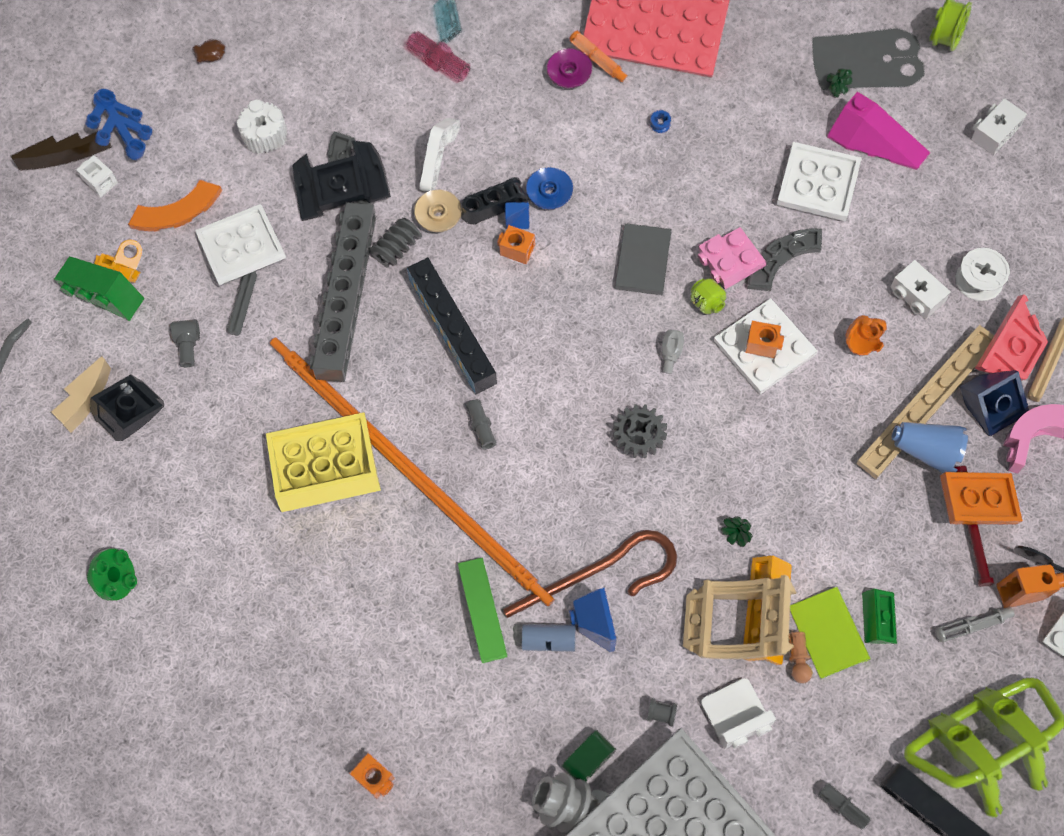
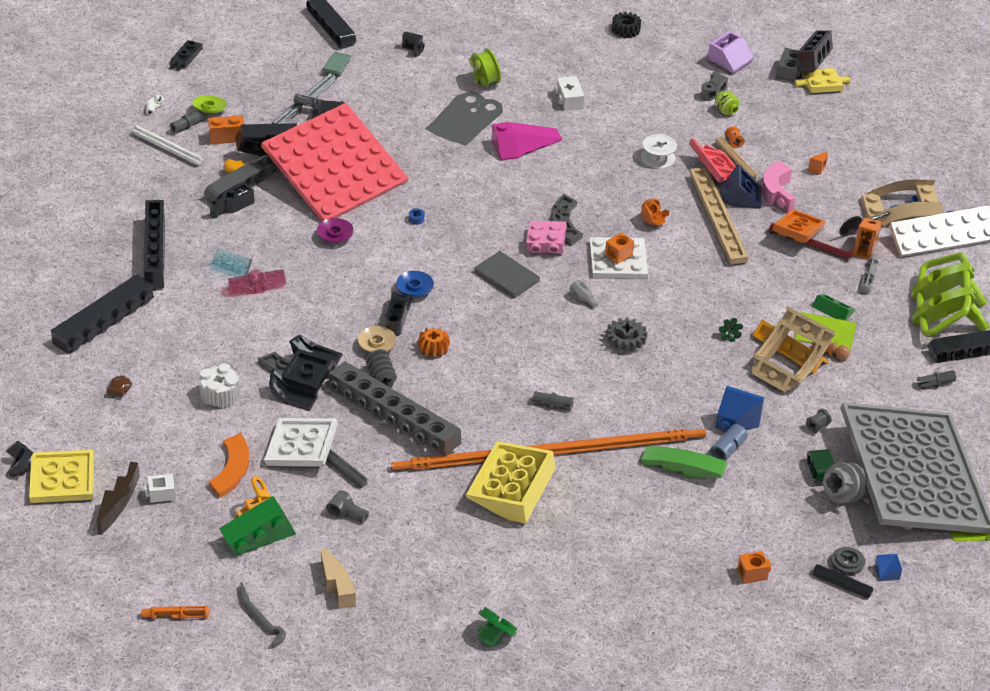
camera: 60 degrees left, 25 degrees down
(51, 51) = (22, 456): none -> black bracket
(59, 90) = (62, 476): none -> light yellow plate
(106, 101) = (140, 454): blue plant -> none
(125, 407) = (371, 562): black slope -> none
(440, 136) = (333, 301): white beam -> none
(452, 326) = (470, 374): black brick -> none
(476, 261) = (433, 342): none -> orange gear
(515, 235) = (441, 317): orange brick -> none
(517, 215) = (418, 308): blue slope -> none
(597, 55) = (340, 213): orange piece -> none
(604, 563) = (699, 394): copper piece -> none
(708, 296) = (563, 258): lime head -> none
(737, 714) = (847, 390): white bracket -> none
(819, 181) = (530, 177): white plate -> none
(839, 81) = (471, 132): dark green plant -> none
(919, 290) = (644, 178): white brick -> none
(932, 443) = (753, 220): medium blue cone -> none

